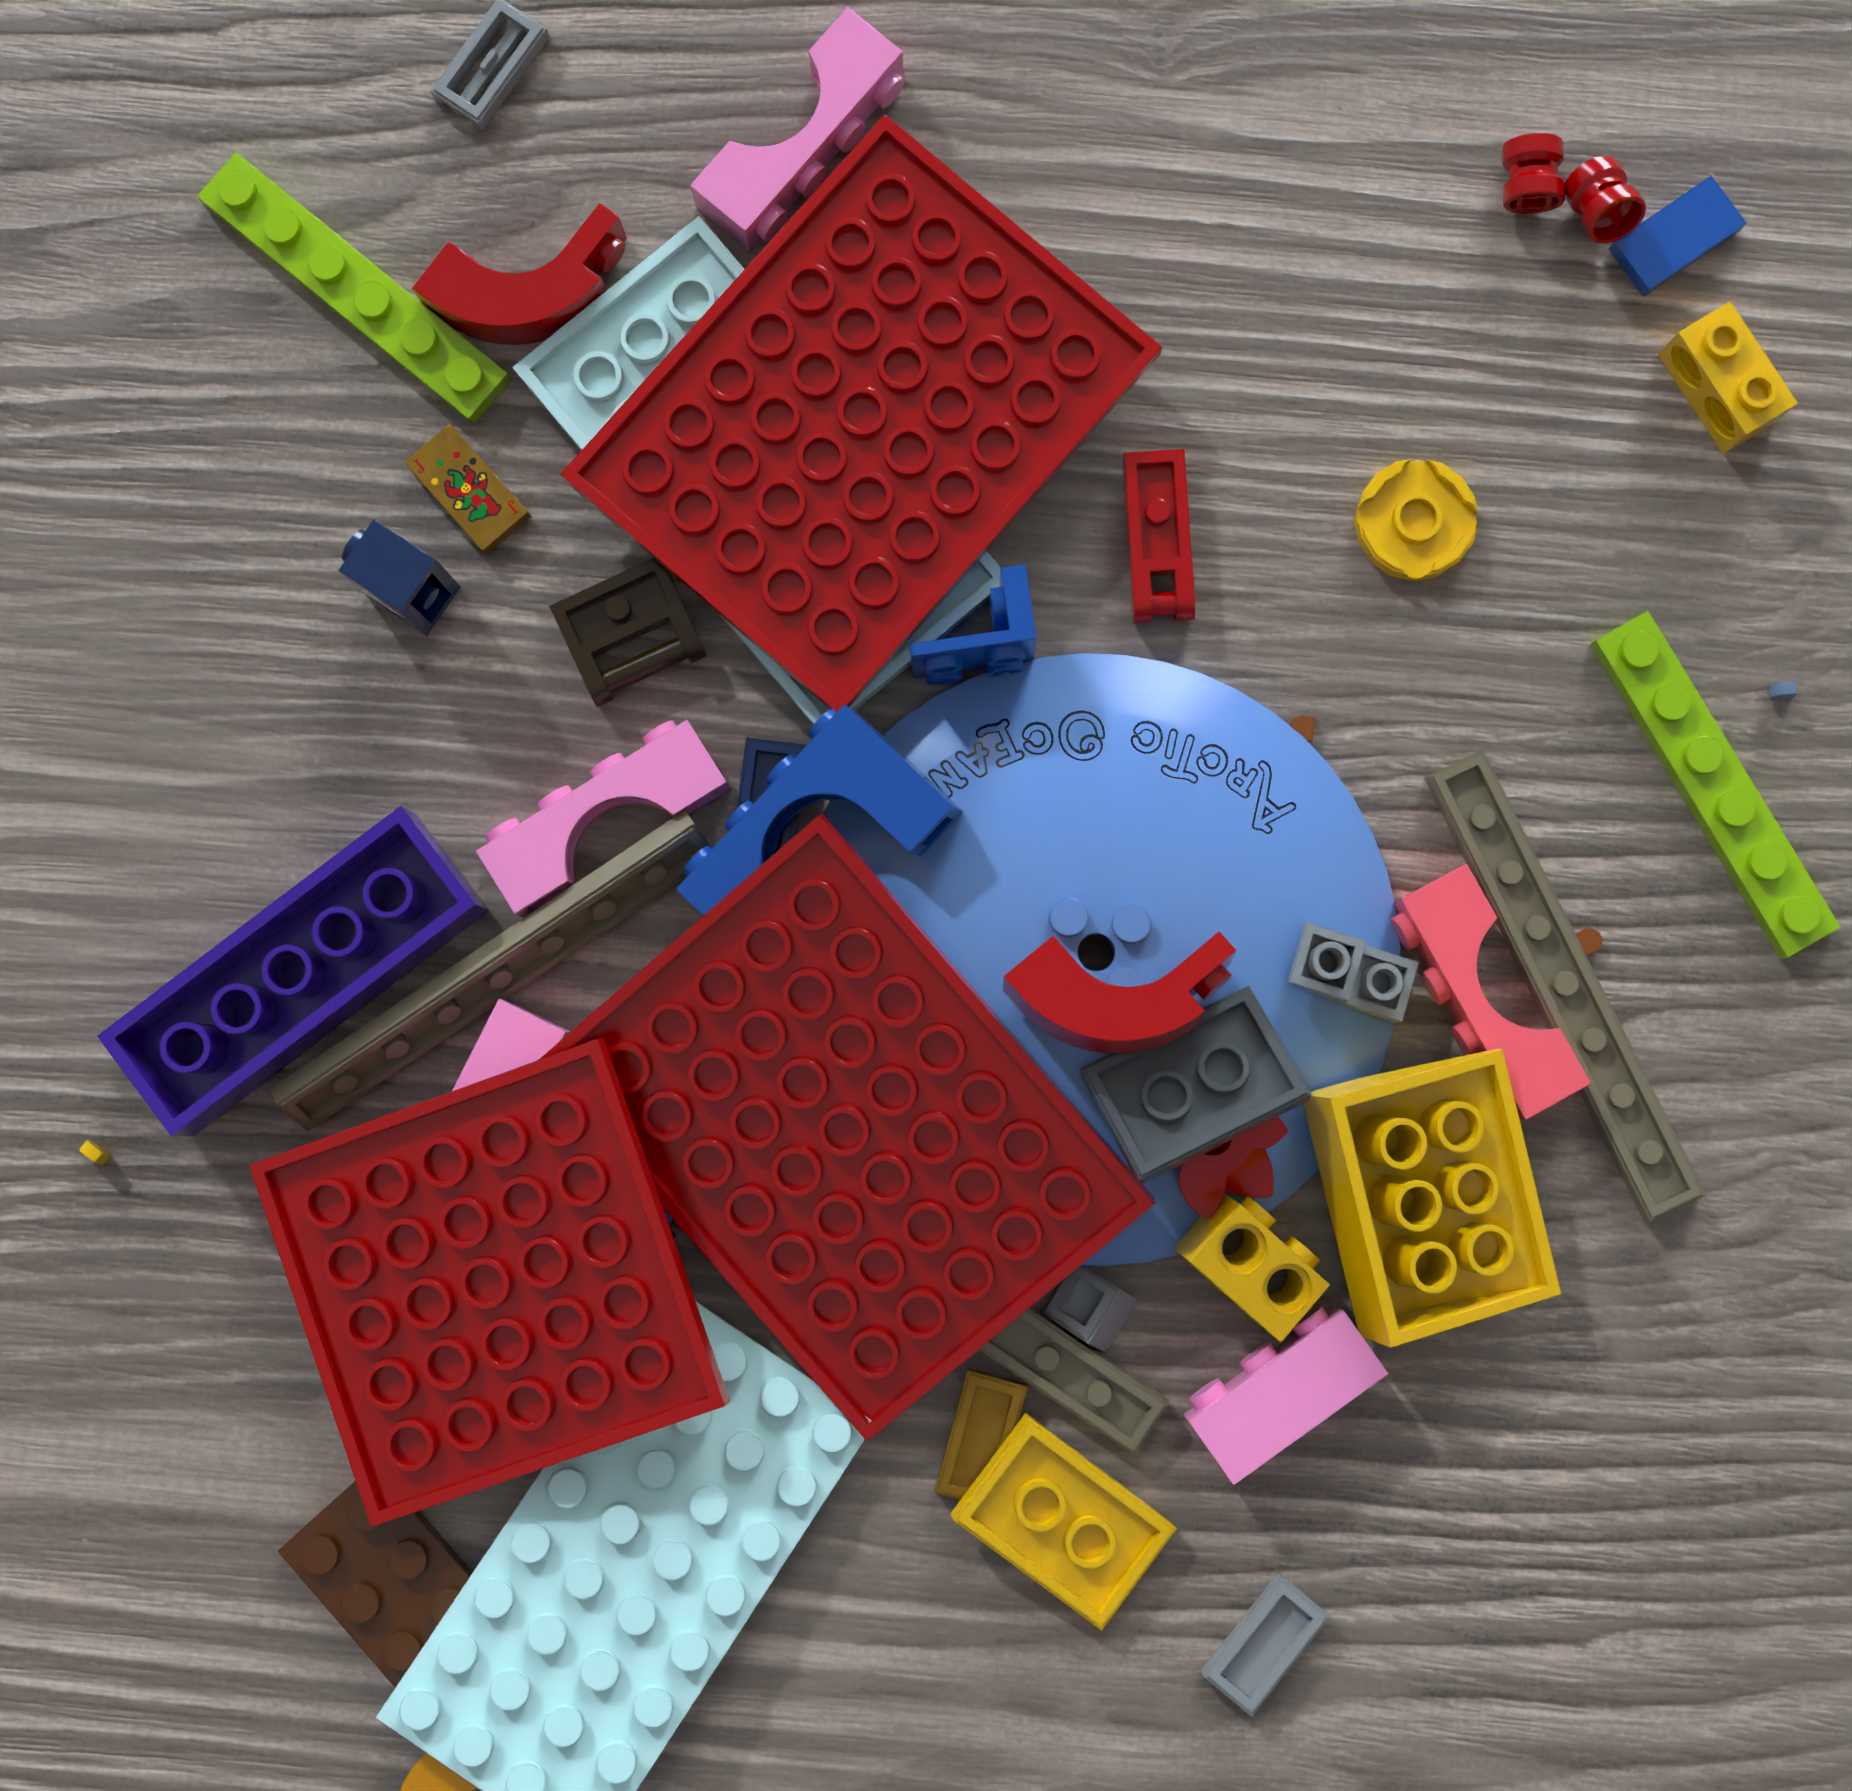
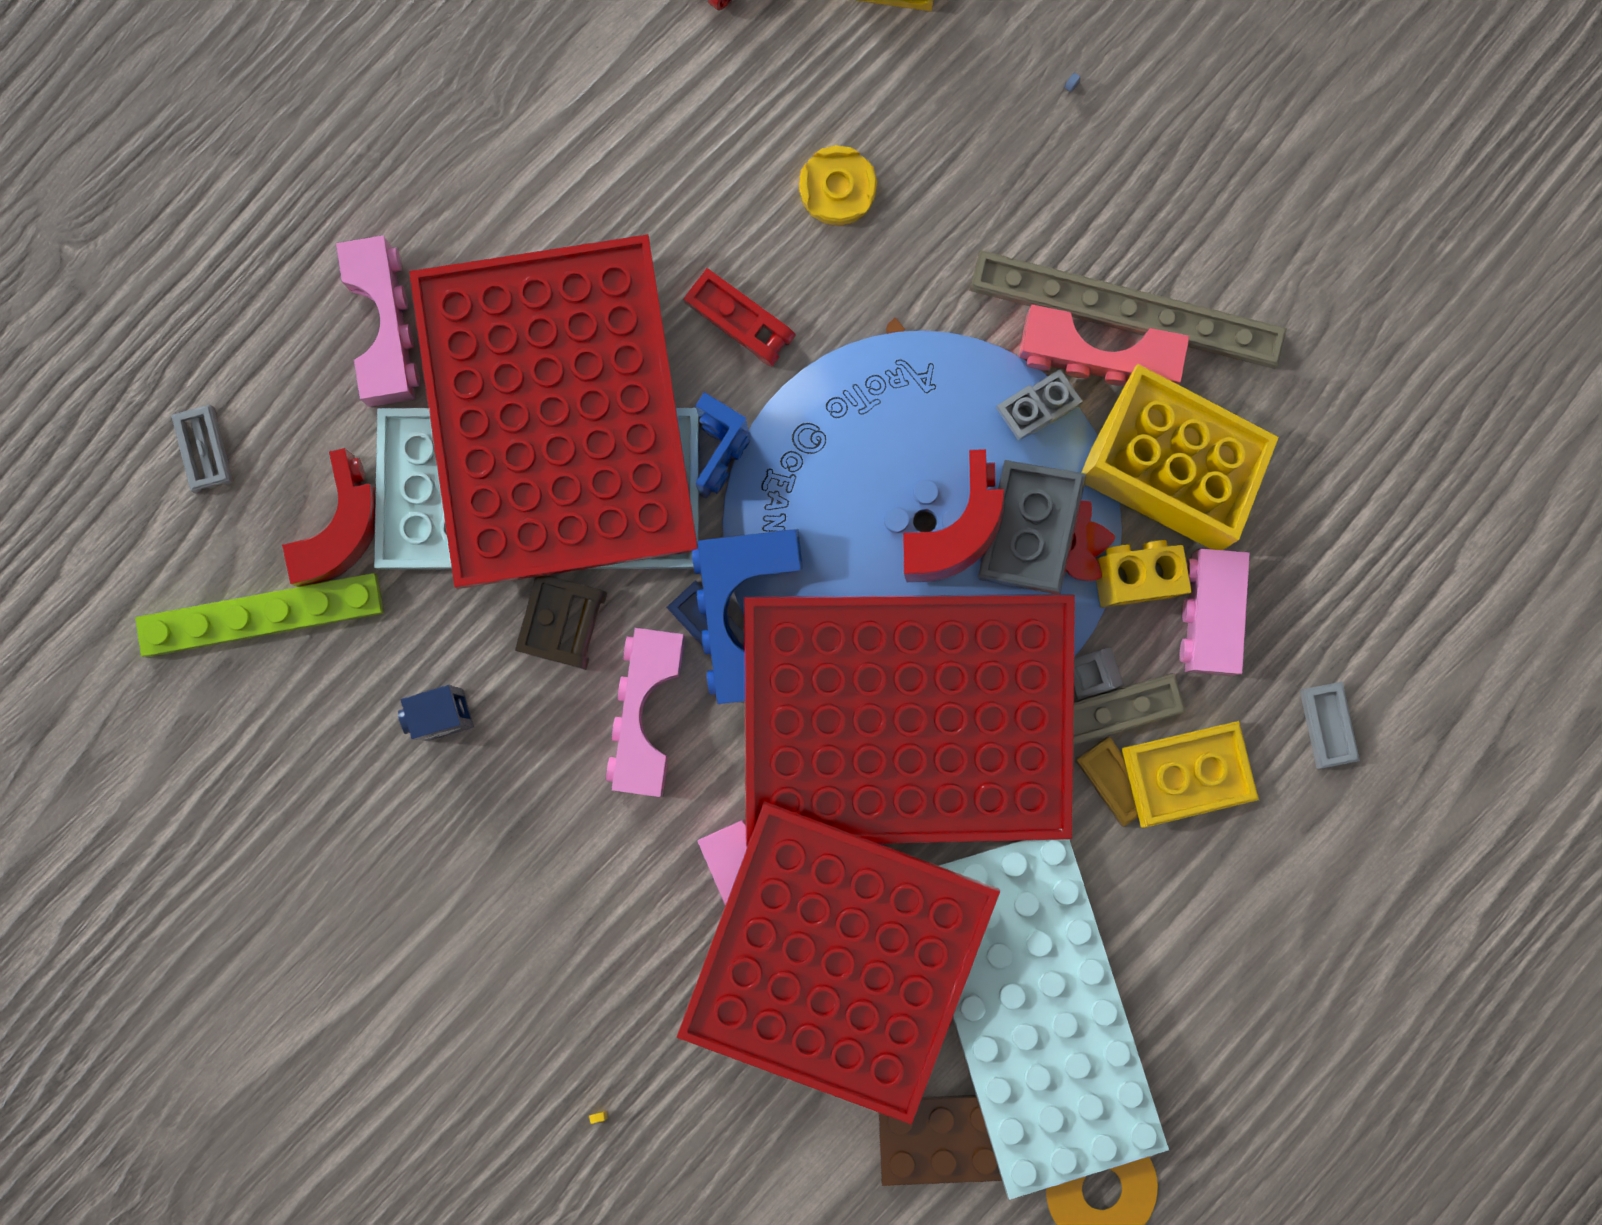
camera: 60 degrees left, 0 degrees up
(292, 973) = (594, 936): dark purple brick -> none
(468, 489) = (416, 643): pearl gold tile -> none
(490, 974) = (679, 835): dark tan tile -> none
(1590, 940) = (1117, 278): dark orange piece -> none
(1714, 786) = (1090, 154): lime plate -> none

